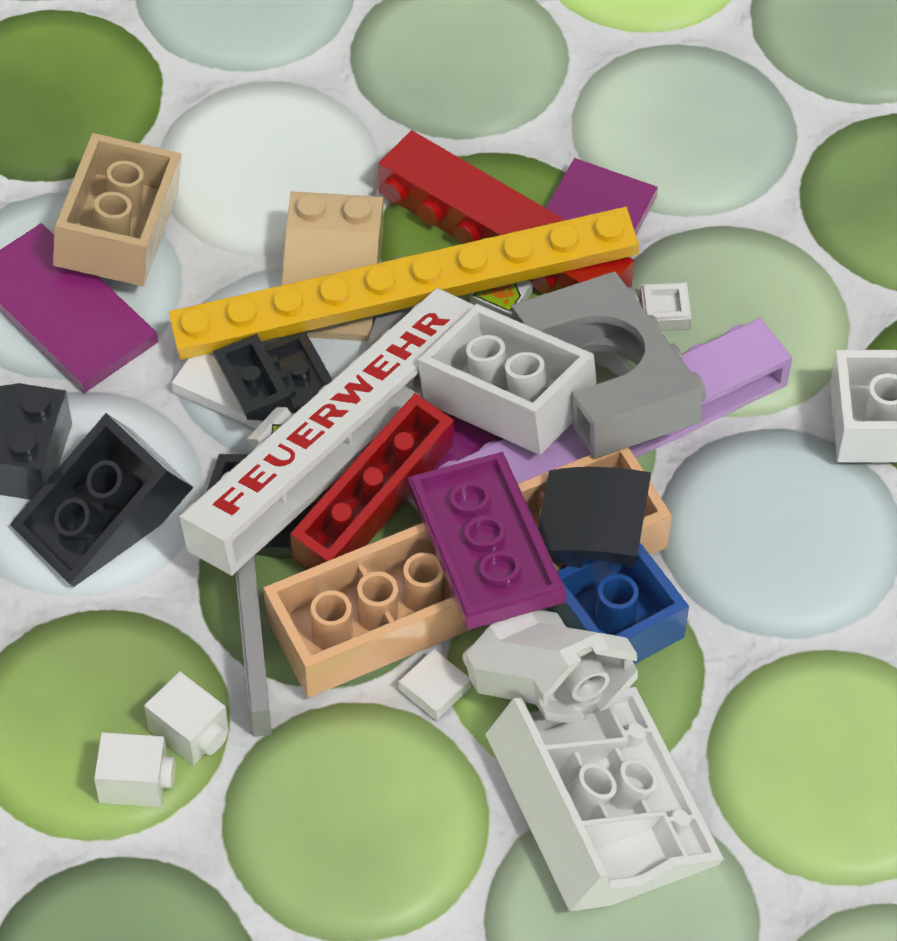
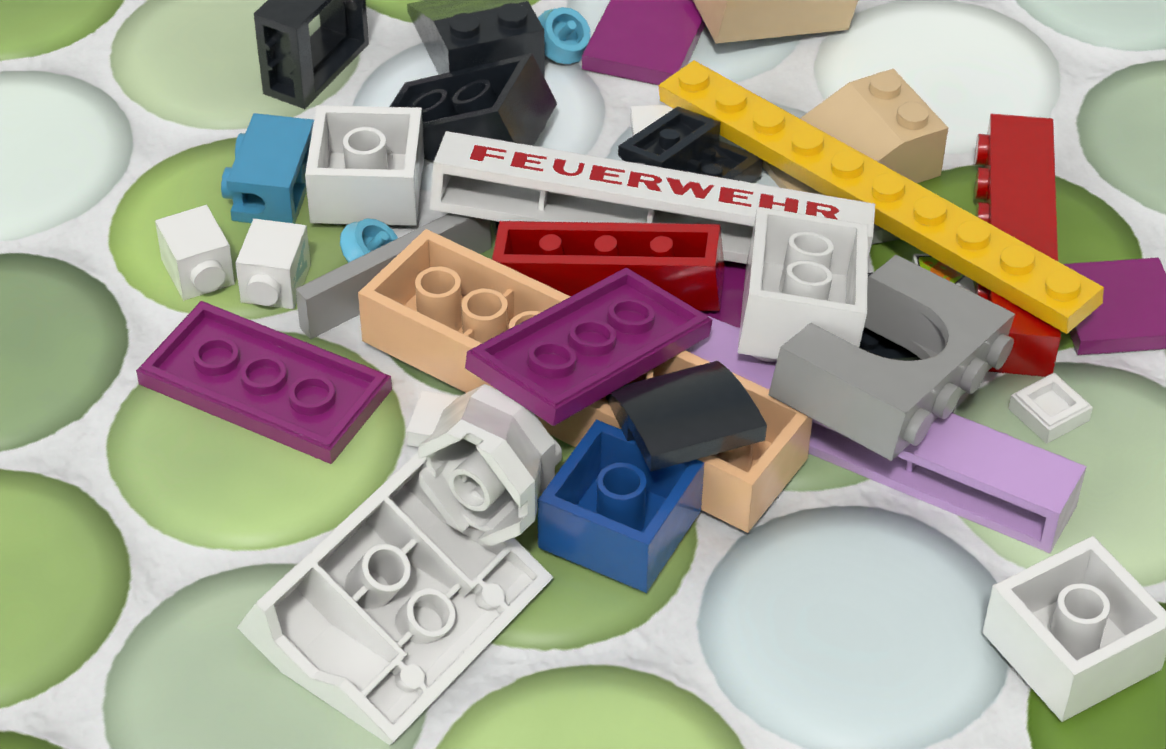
camera: 60 degrees right, 10 degrees down
(46, 373) = (564, 35): none -> medium azure hat
(67, 669) = (269, 169): none -> dark azure brick
(125, 597) = (365, 165): none -> white brick
(213, 641) = (364, 237): none -> medium azure hat
(303, 786) = (265, 381): none -> magenta tile

